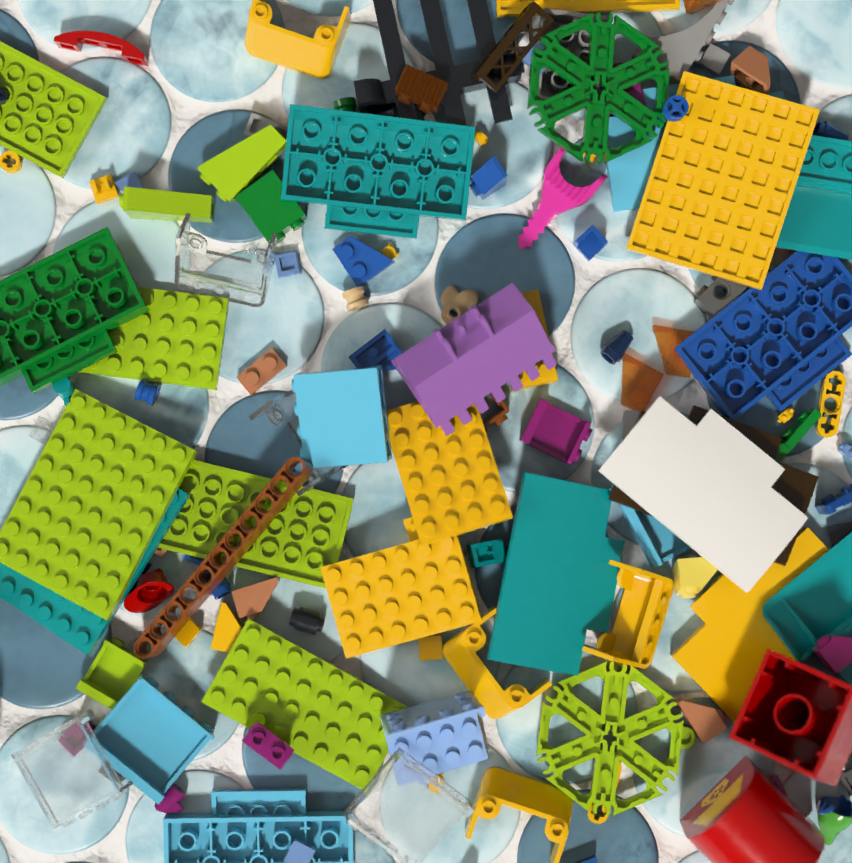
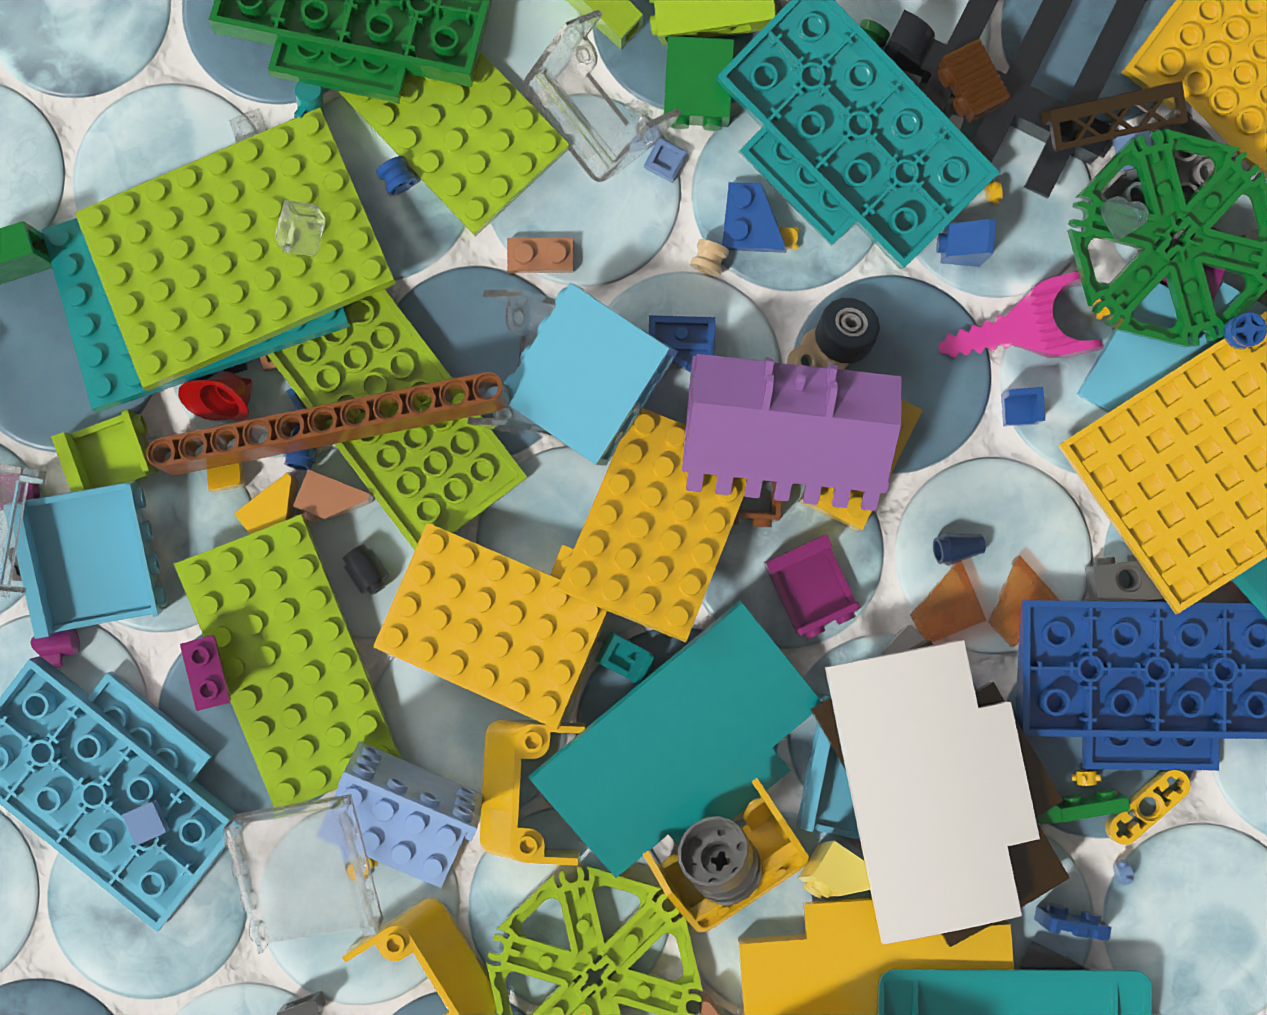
camera: 40 degrees right, 0 degrees up
(122, 464) = (300, 228): none -> clear panel
(430, 648) = (477, 712): yellow tile -> none
(462, 278) = (847, 330): none -> black wheel
(561, 99) = (1123, 216): none -> clear light blue tile
(626, 619) = (708, 849): none -> dark grey wheel

